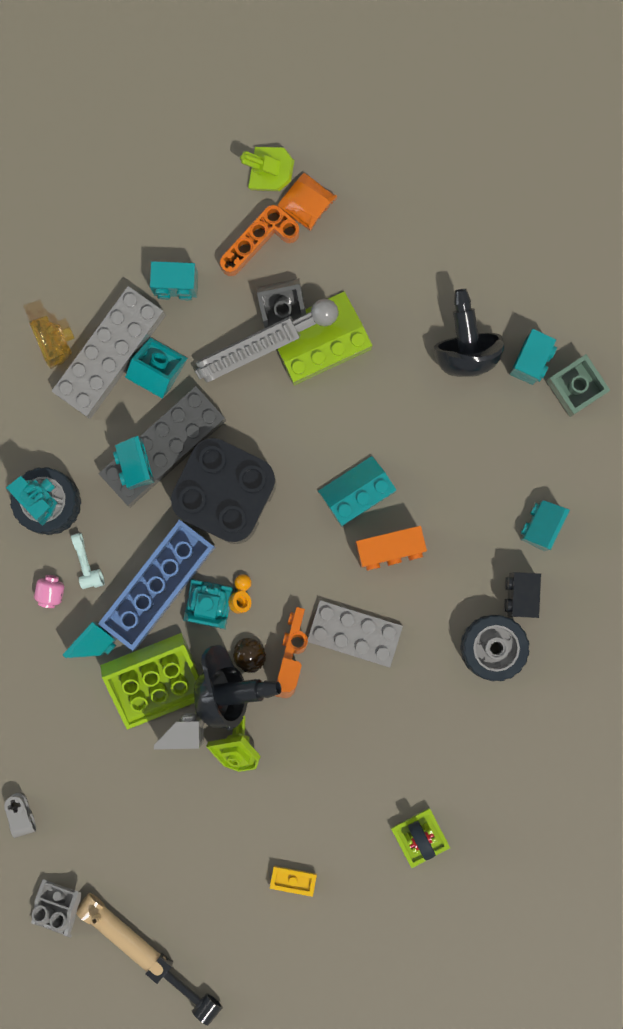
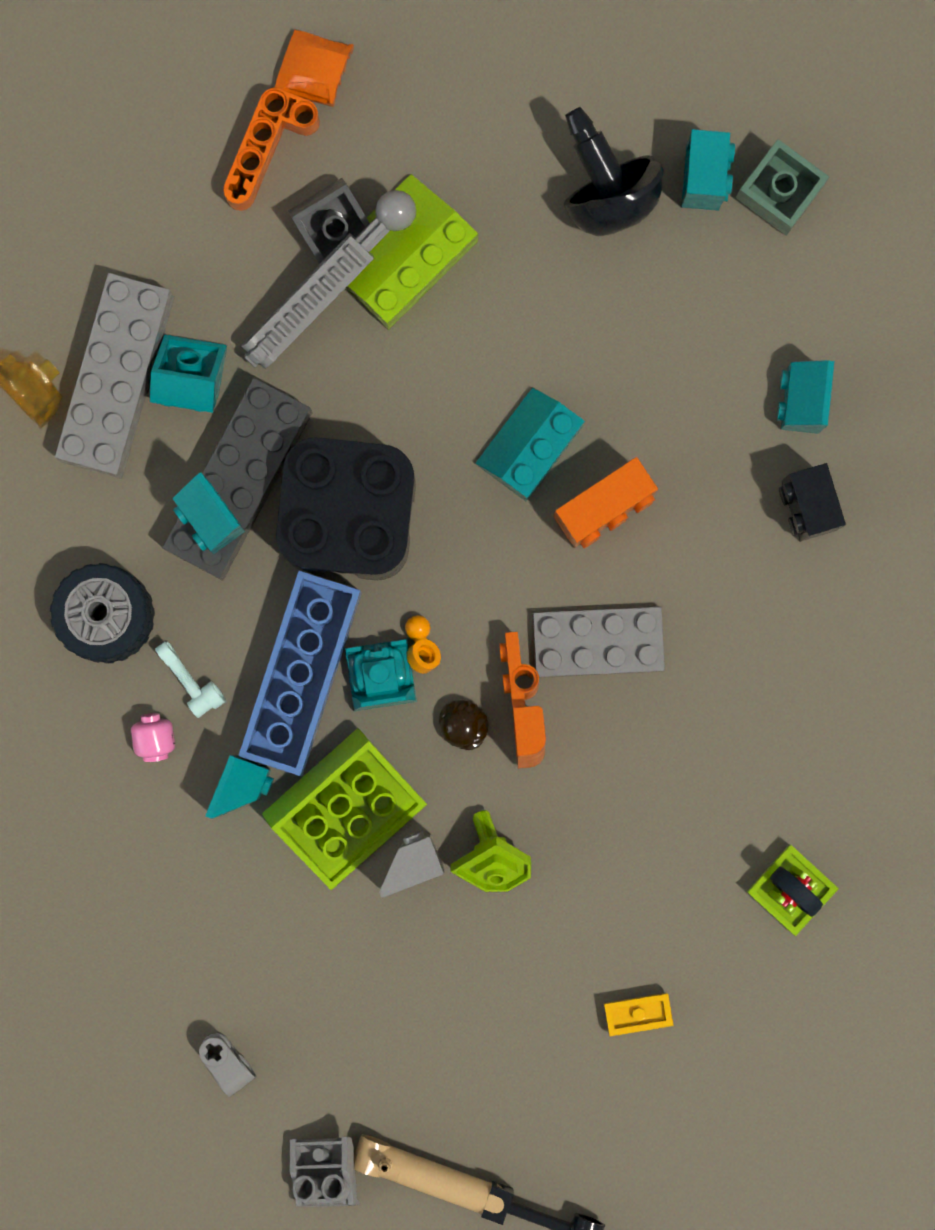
camera: 25 degrees left, 0 degrees up
(34, 497) = (87, 611): teal brick -> none
(174, 280) = (169, 242): teal brick -> none
(222, 692) = (447, 788): black piece -> none
(270, 168) = (246, 40): lime piece -> none
(512, 647) = (824, 584): wheel -> none

